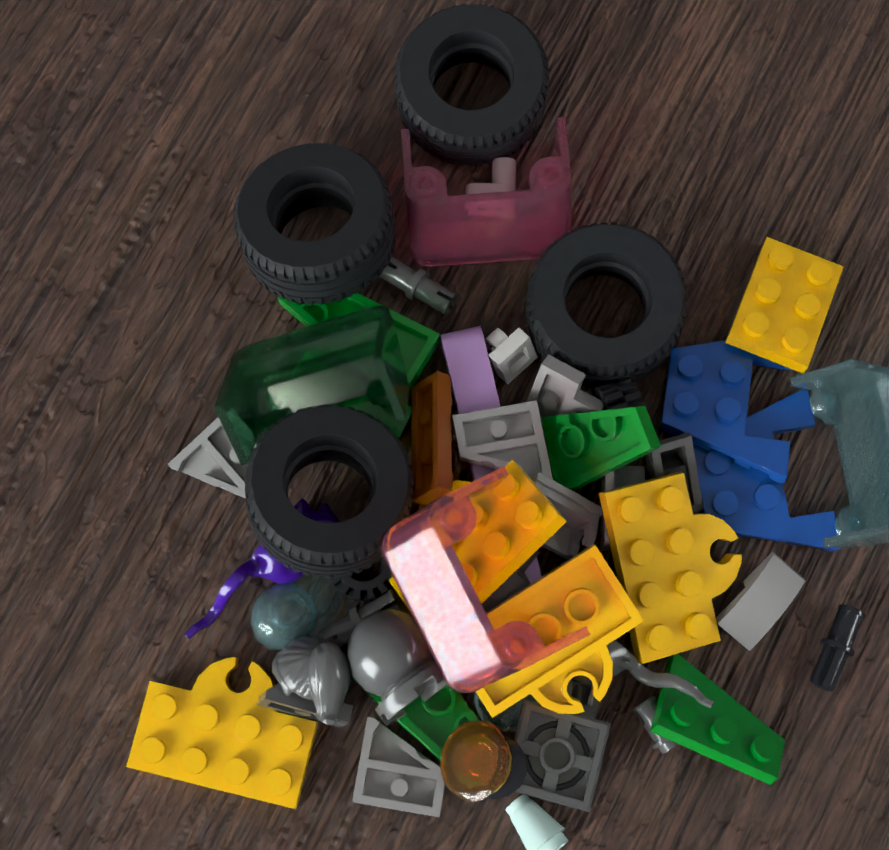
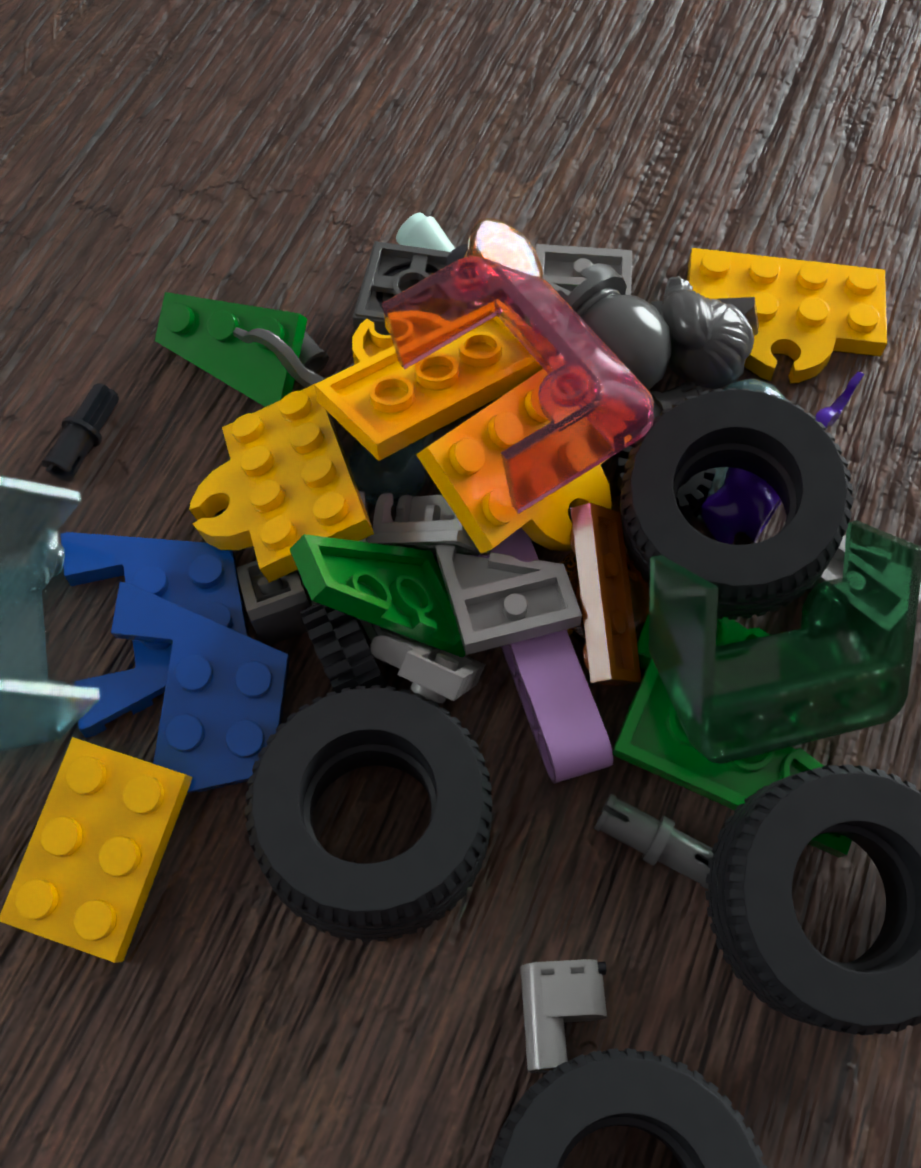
camera: 170 degrees right, 15 degrees down
(487, 224) = (481, 943): clear pink windscreen -> none
(511, 353) = (508, 744): white tile -> none
(761, 602) = (162, 470): light grey slope -> none

